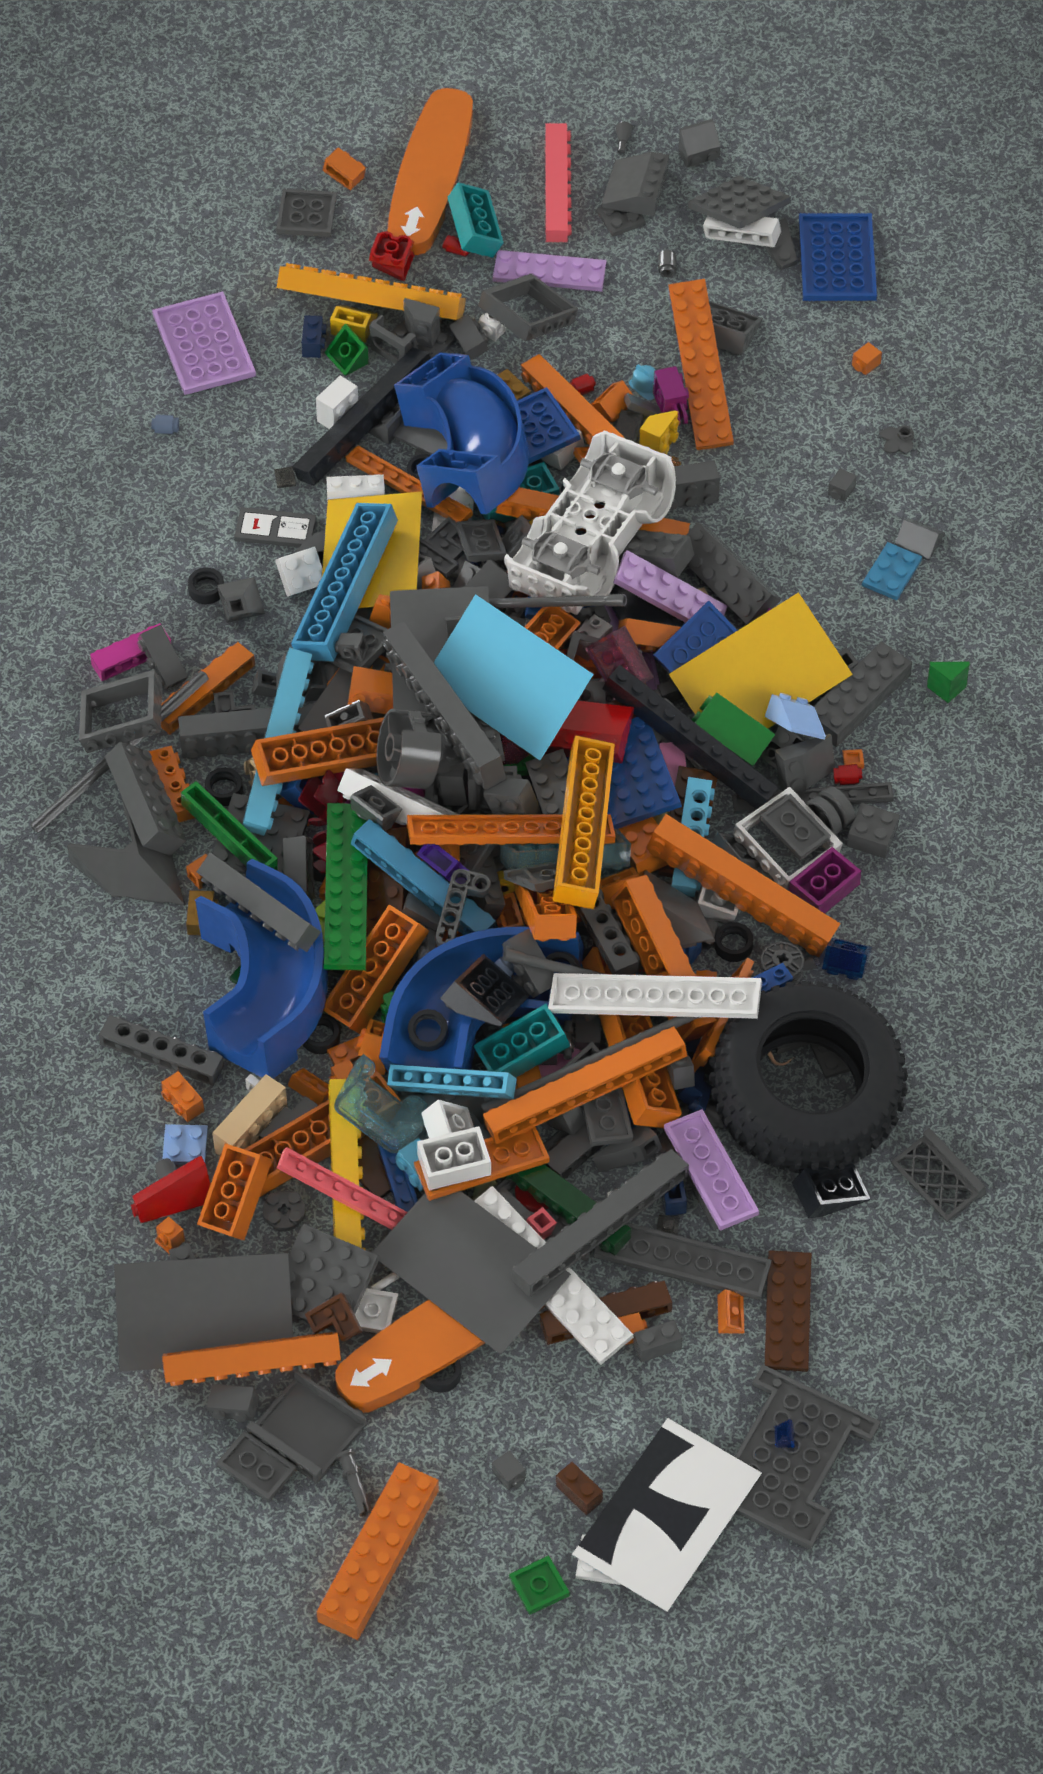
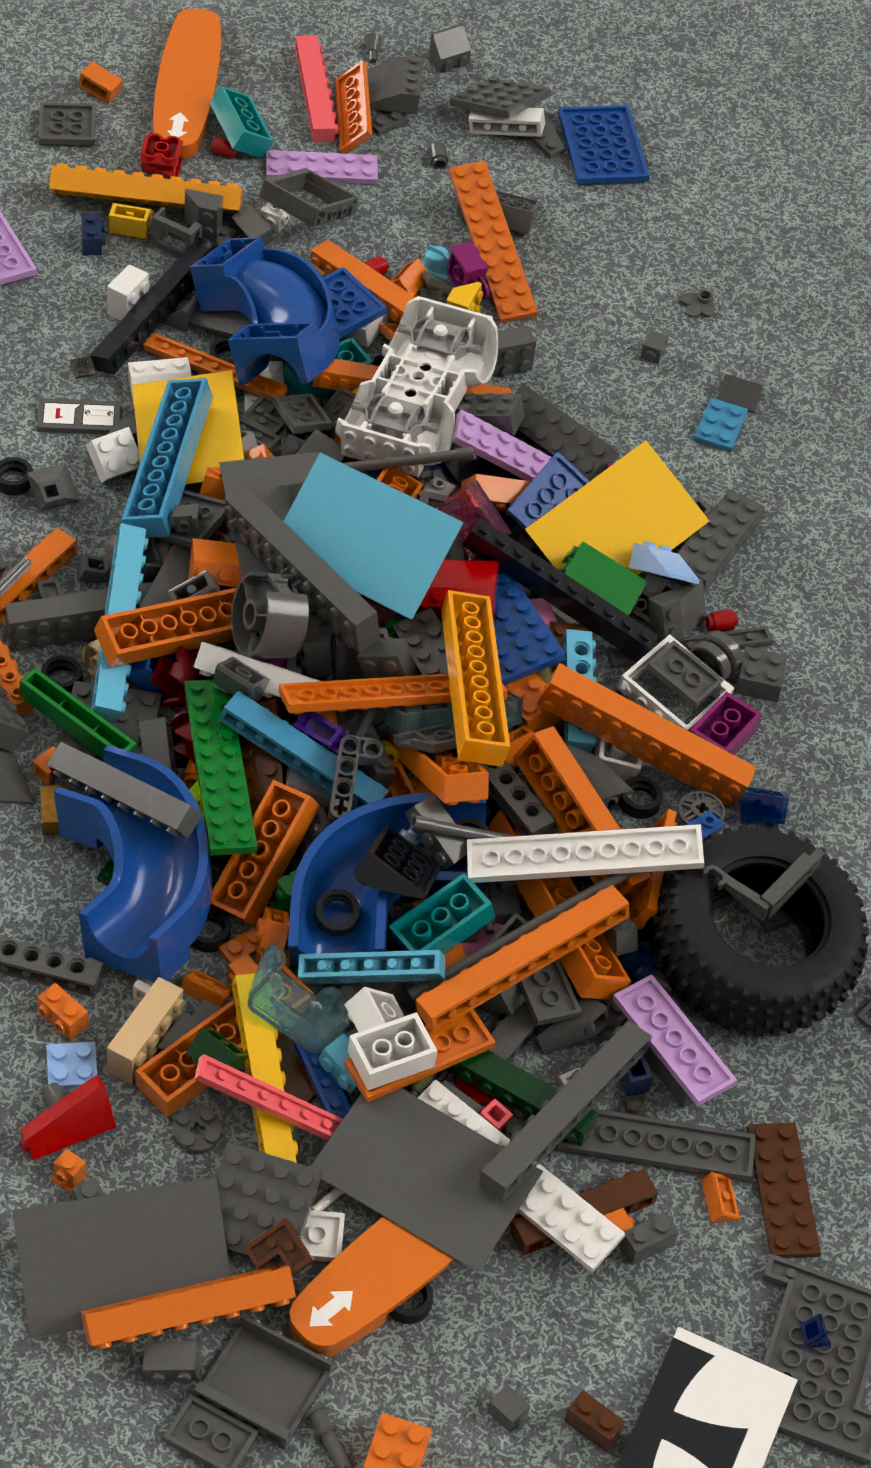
camera: 15 degrees left, 5 degrees down
(234, 1191) = (141, 1113): orange brick -> none
(305, 1142) = (216, 1046): none -> dark green brick
(347, 351) = (130, 245): green slope -> none
(590, 207) = (353, 107): none -> orange plate
(823, 1044) = (777, 894): none -> dark grey hinge
(830, 1191) = (800, 1052): black slope -> none
(853, 757) = (722, 603): orange tile -> none
(866, 358) = (652, 232): orange brick -> none
(947, 678) = (803, 520): green slope -> none

